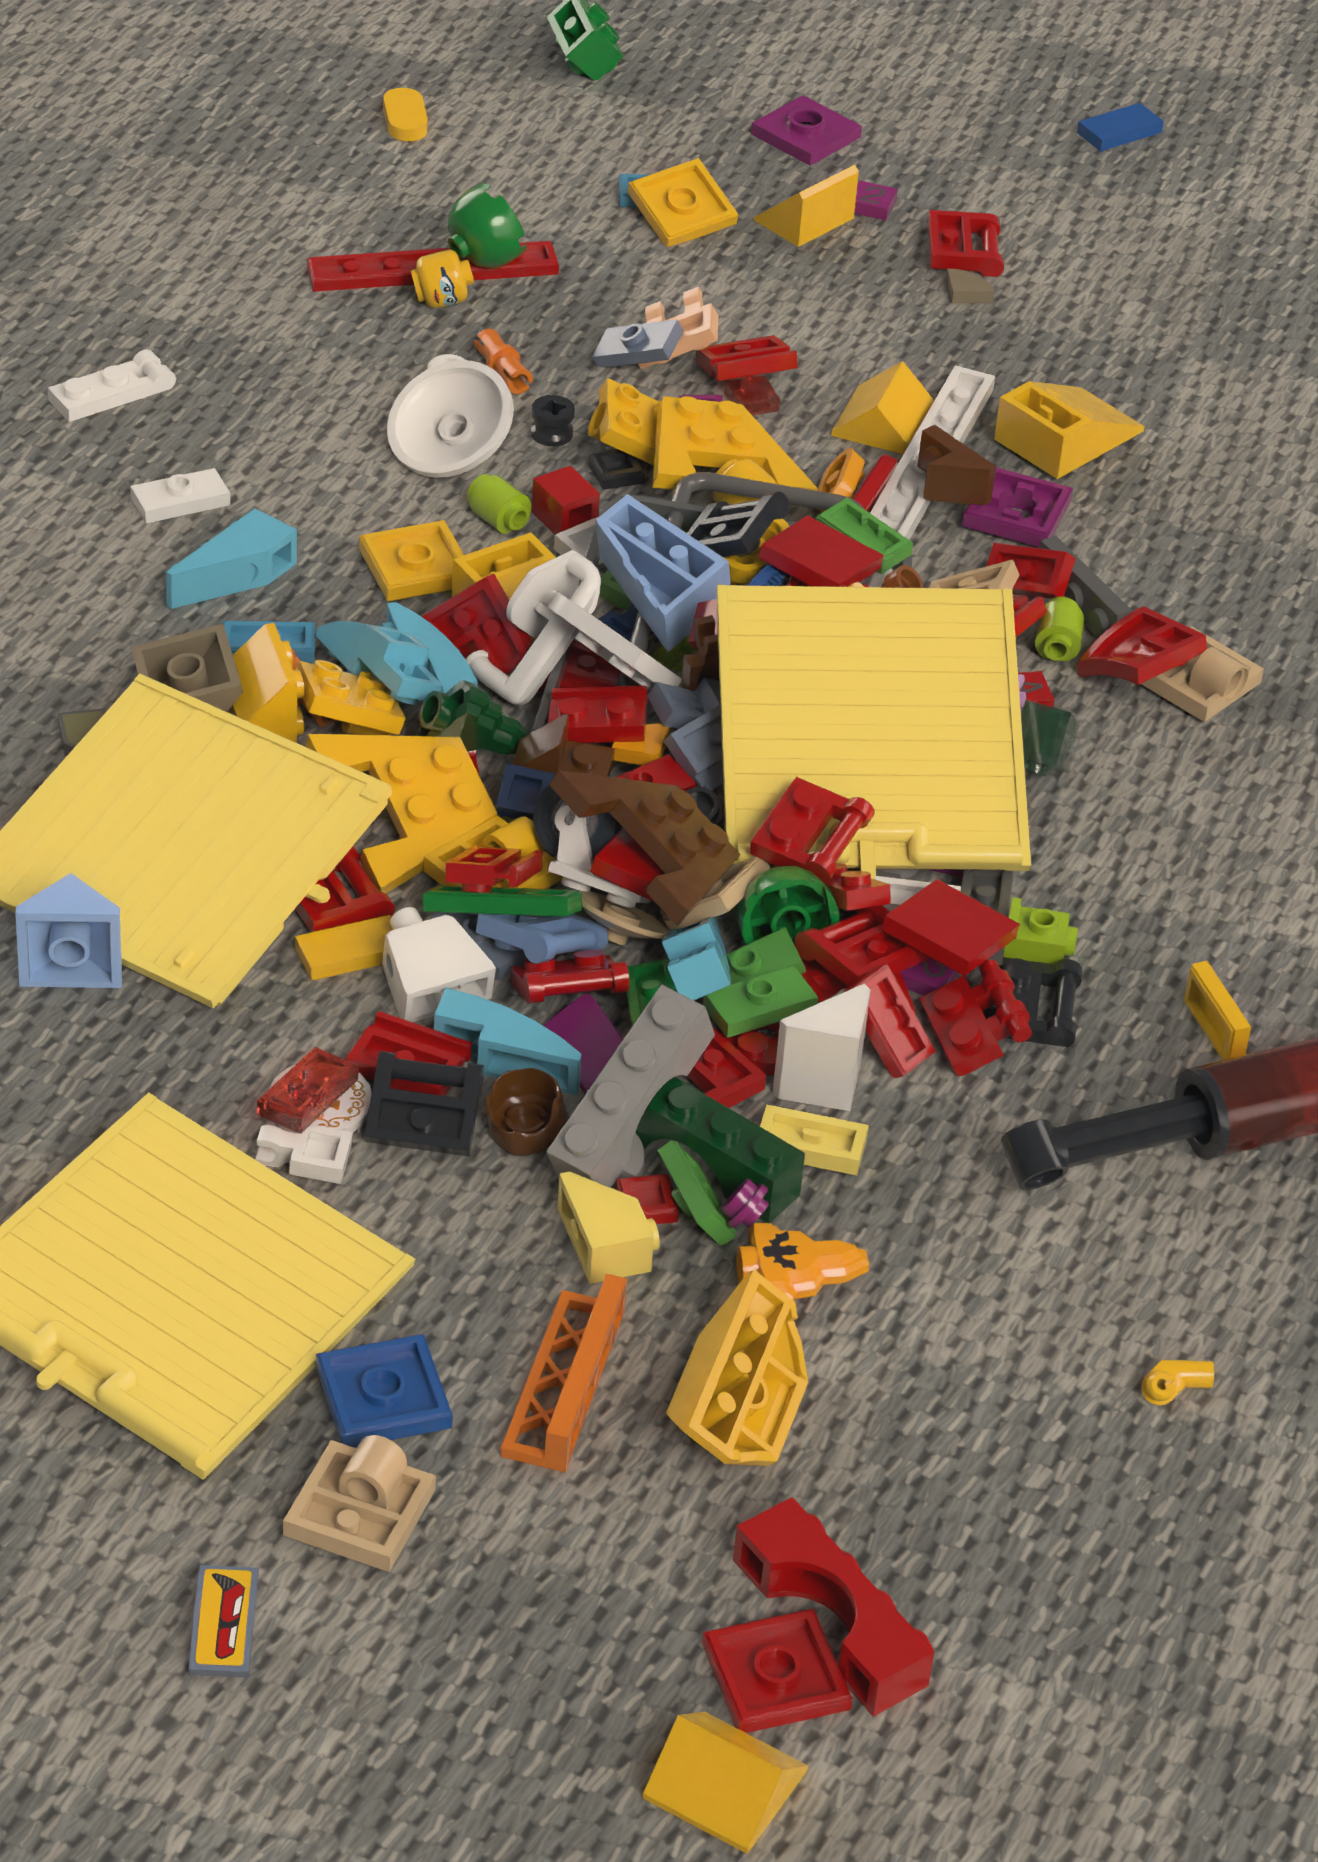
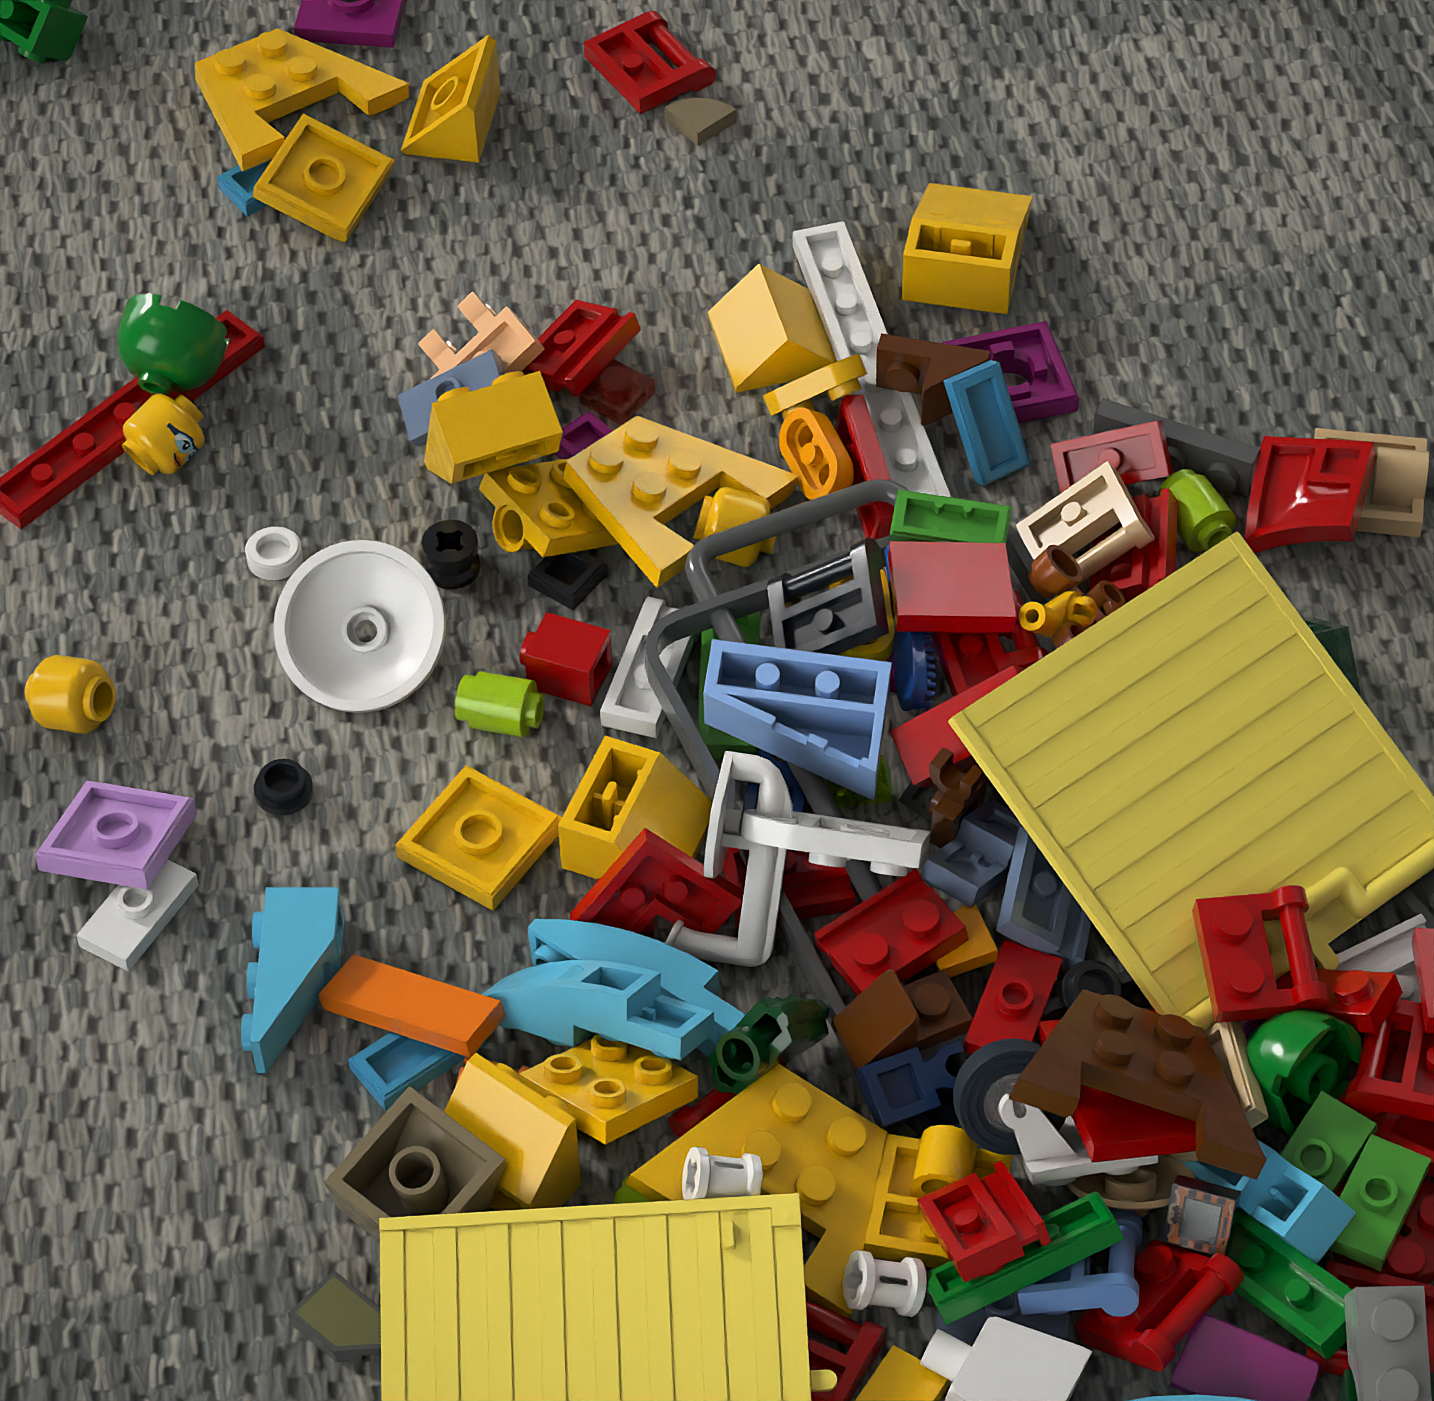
camera: 30 degrees left, 10 degrees up
(203, 450) = (116, 834): none -> lavender tile
(248, 373) = (70, 694): none -> yellow head
(279, 603) = (412, 1005): none -> orange tile
(327, 479) = (283, 787): none -> black plate
(356, 755) = (720, 1176): none -> white bush
(411, 876) = (884, 1283): none -> white bush
(504, 360) = (324, 504): orange pin -> none
(626, 348) = (491, 427): none -> yellow slope
(635, 940) = (1201, 1216): none -> tile
(718, 142) = (277, 77): none -> yellow wing
(874, 200) = (513, 57): magenta tile -> none
(876, 441) = (835, 379): none -> yellow plate
(964, 512) = (987, 422): none -> dark azure tile

